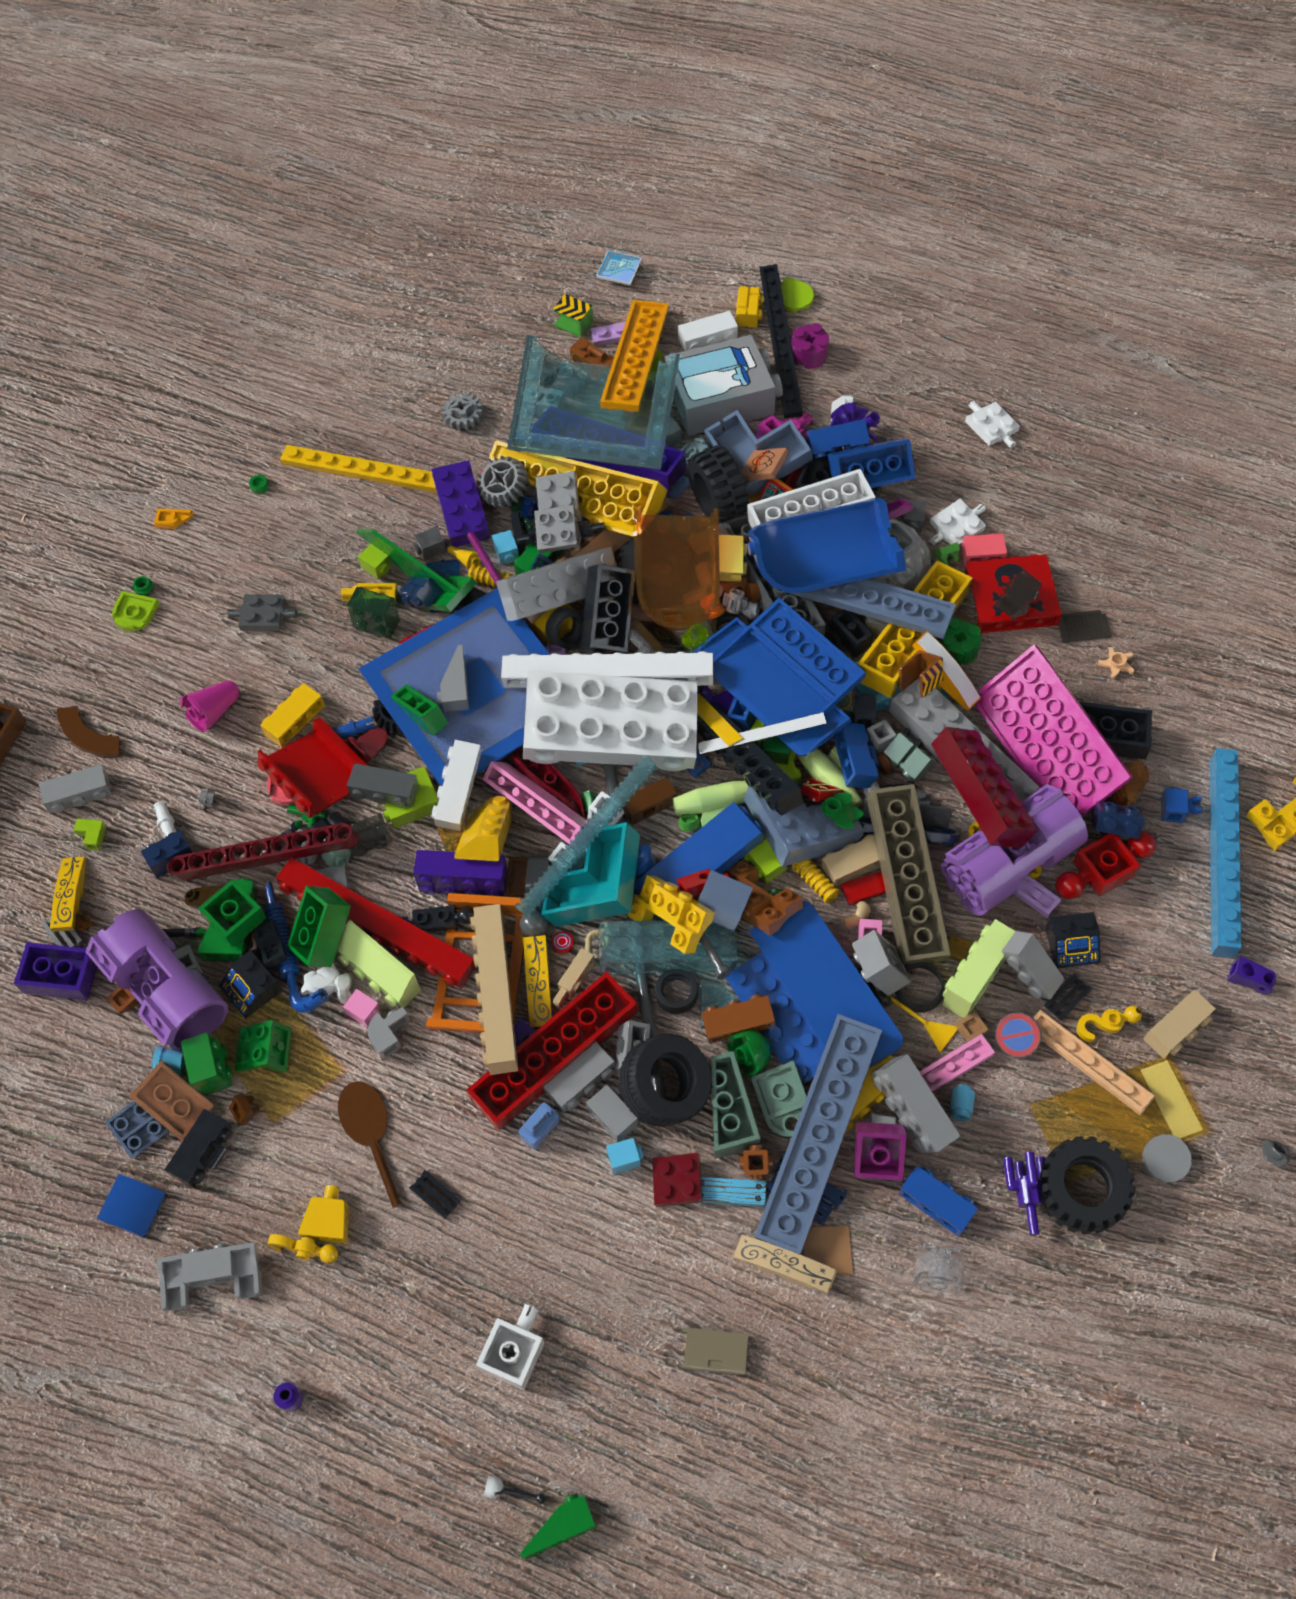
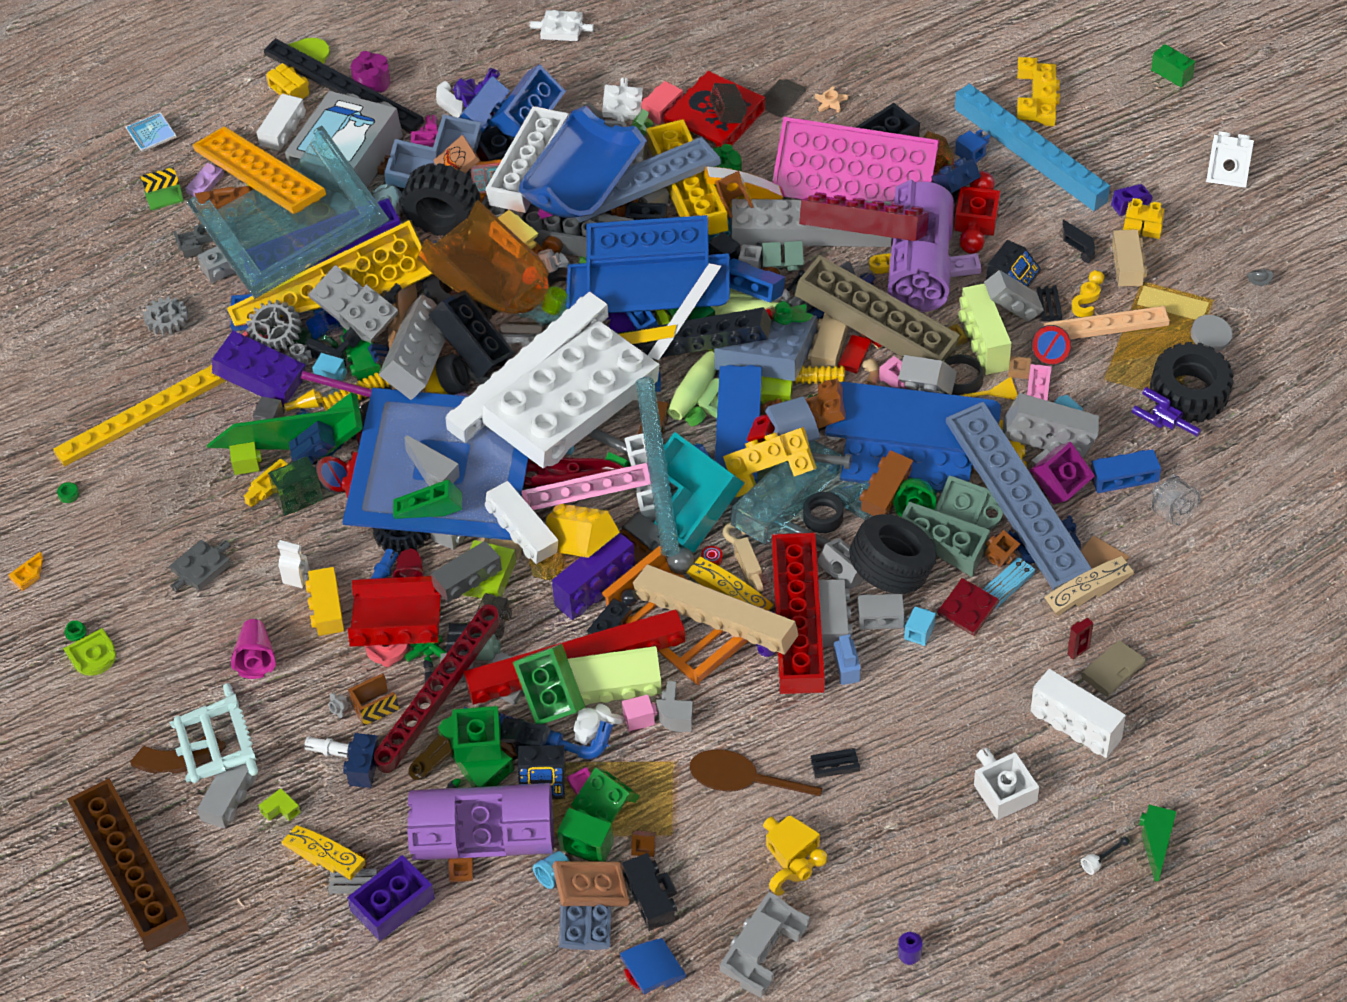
camera: 50 degrees left, 10 degrees down
(101, 776) = (219, 763): none -> light aqua piece
(221, 803) = (377, 709): none -> dark orange piece
(266, 1014) = (578, 779): none -> dark pink tile
(300, 667) = (292, 564): none -> white piece
(407, 622) = (331, 473): none -> piece
(500, 518) = (299, 353): none -> light grey gear
(631, 1363) = (1077, 713): none -> white brick
(714, 1299) = (1080, 638): none -> dark red plate
(1161, 969) = (1079, 241): none -> black piece
(1235, 997) = (1151, 215): none -> yellow hips

